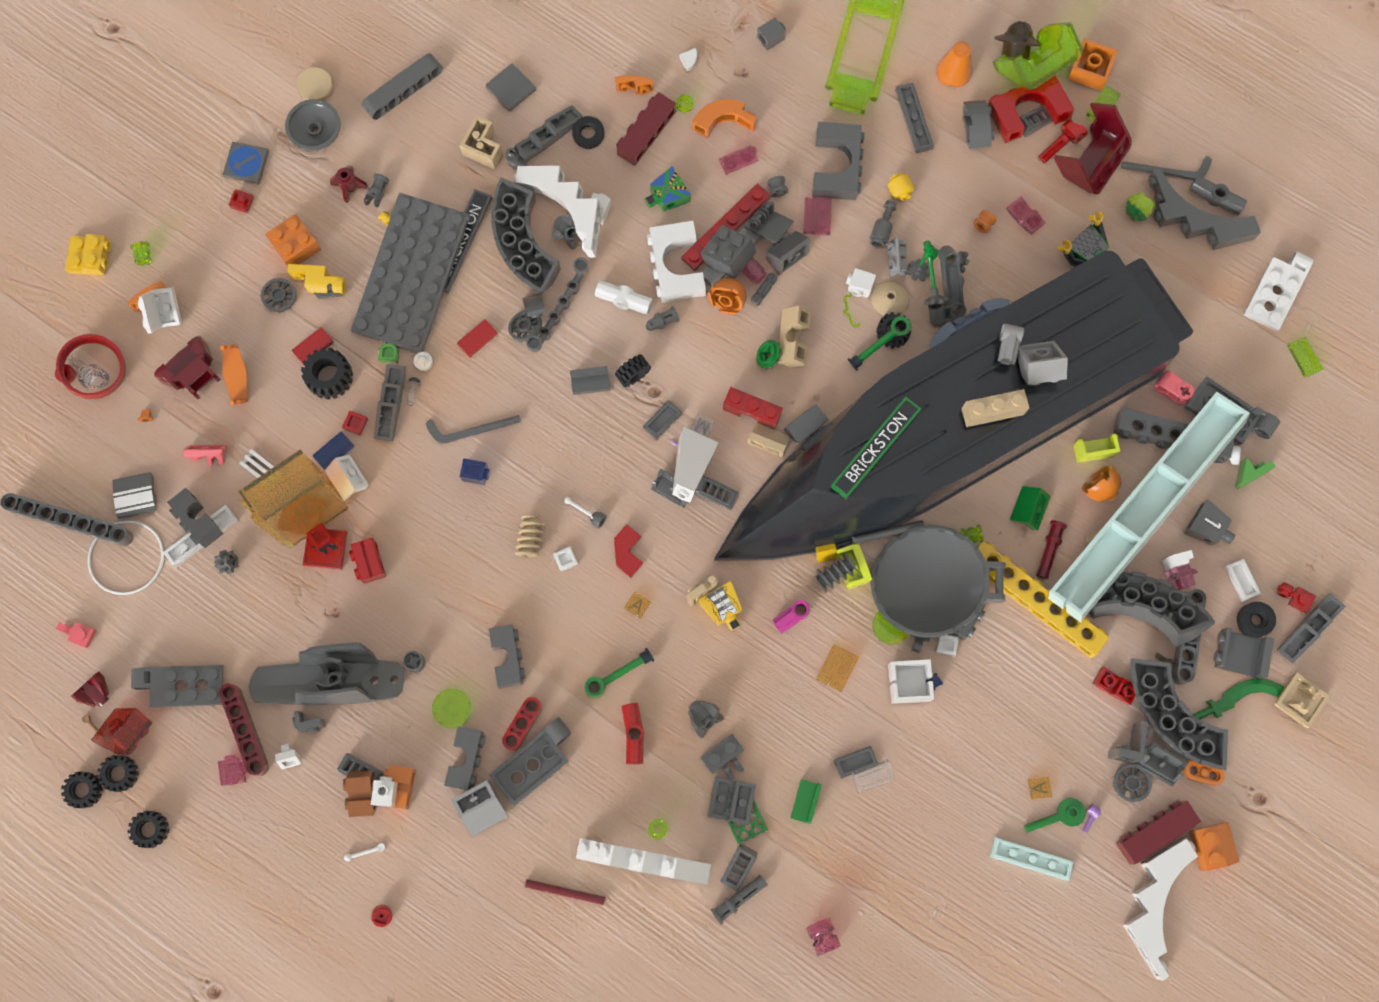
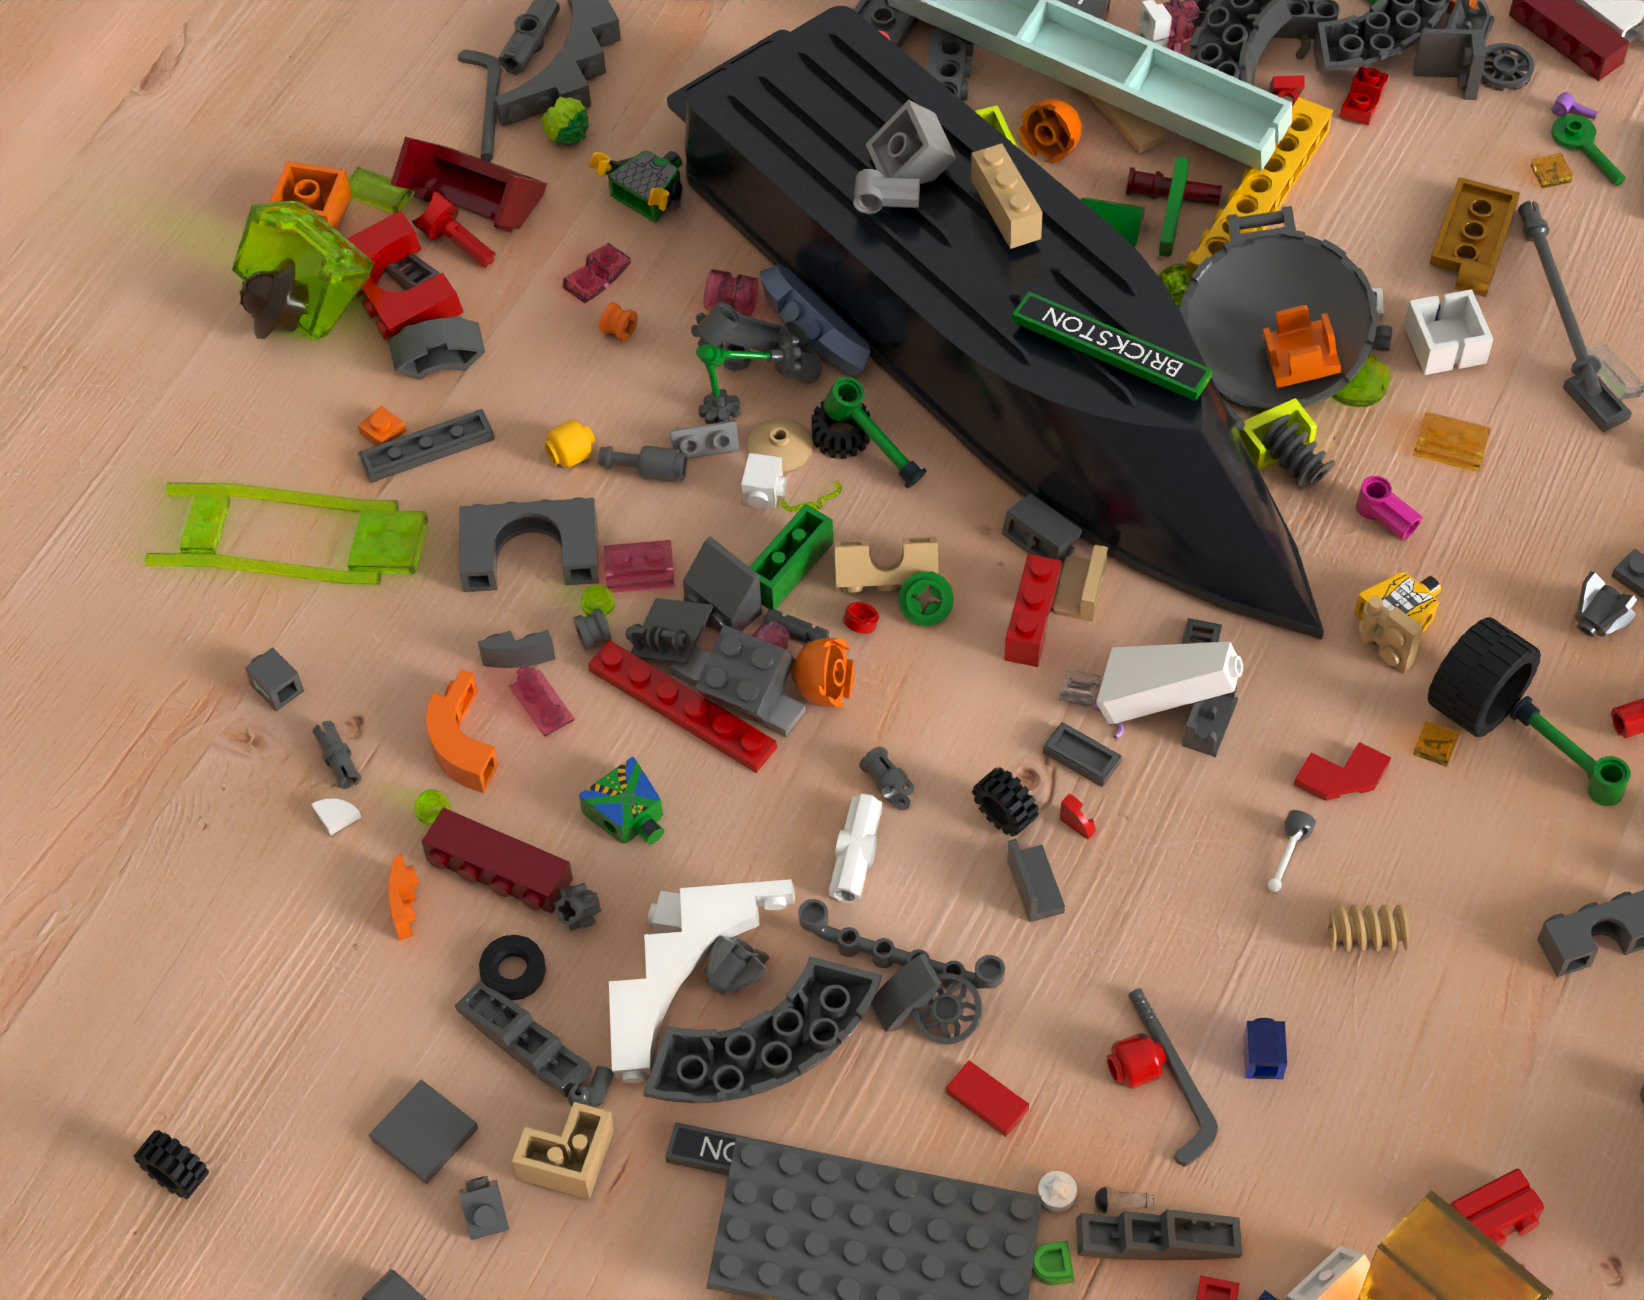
camera: 95 degrees left, 20 degrees down
(466, 107) = (483, 1207): none -> dark grey bracket
(480, 409) = (1136, 1060): none -> red head
(565, 559) = (1386, 871): white tile -> none
(612, 162) = (577, 906): none -> dark grey gear
(623, 408) = (1074, 818): none -> red tile
(660, 630) = (1483, 676): none -> black tyre
(673, 286) = (736, 801): white arch -> none
(723, 61) = (336, 754): none -> dark grey pin
(764, 321) = (861, 617): none -> red tile
(771, 148) = (505, 652): none -> dark grey slope
(799, 188) = (594, 594): none -> clear neon green plate
(804, 287) = (792, 554): none -> green brick
(826, 553) = (1265, 474): yellow tile -> none
(908, 590) = (1300, 347): none -> orange panel
(929, 96) = (381, 426): none -> orange plate
(956, 65) = (322, 386): orange cone -> none
(958, 714) = (1484, 249): none -> pearl gold hinge
(988, 761) = (1536, 230): none -> dark grey bar
(996, 282) = (720, 288): none -> clear pink wheel
(1029, 542) = (1173, 207): none -> green tile
(1126, 636) = (1287, 86): none -> red tile

